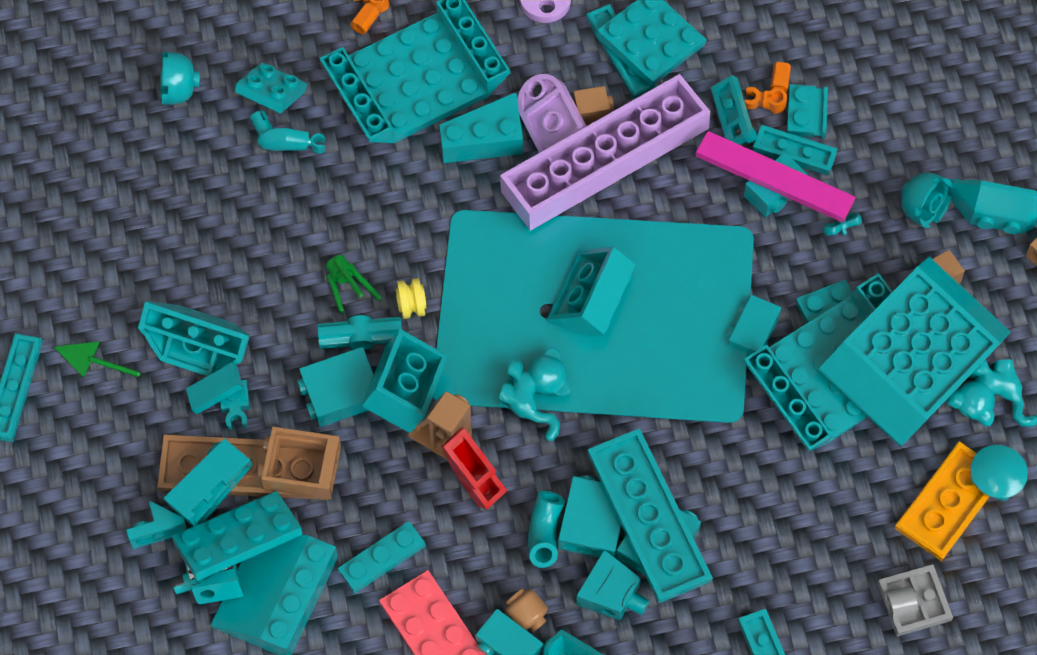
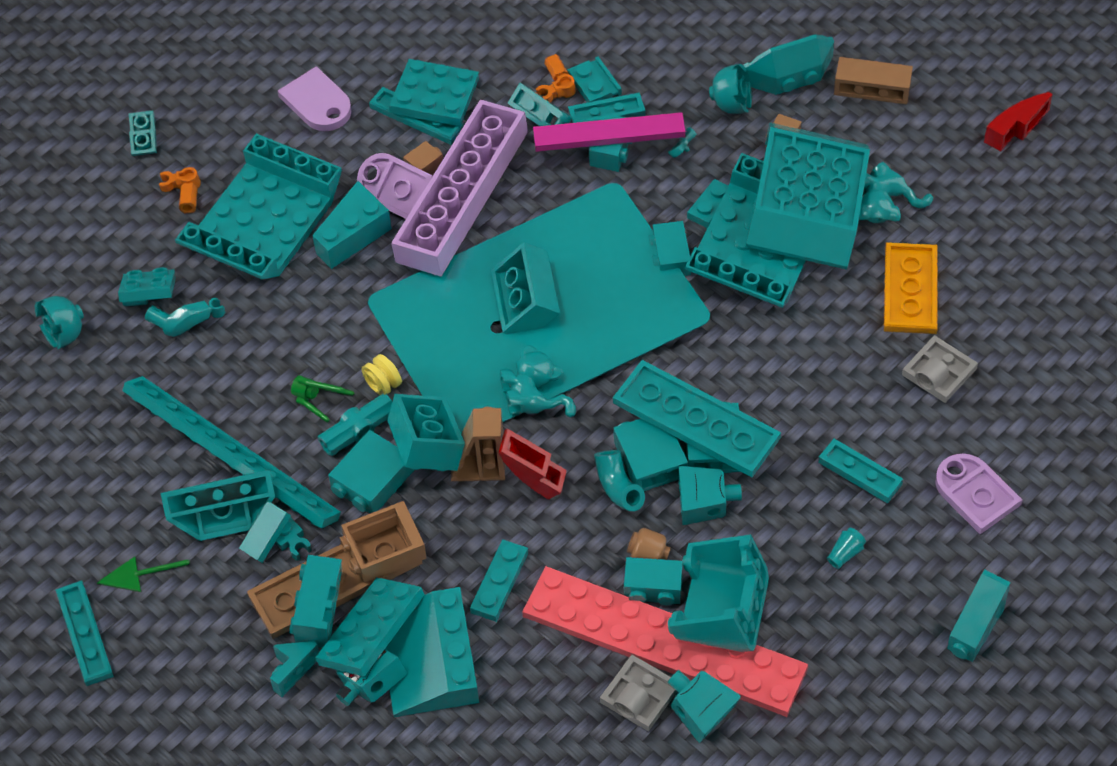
camera: 30 degrees left, 10 degrees down
(238, 293) = (230, 450): none -> teal plate
(999, 471) = (932, 244): teal dish -> none

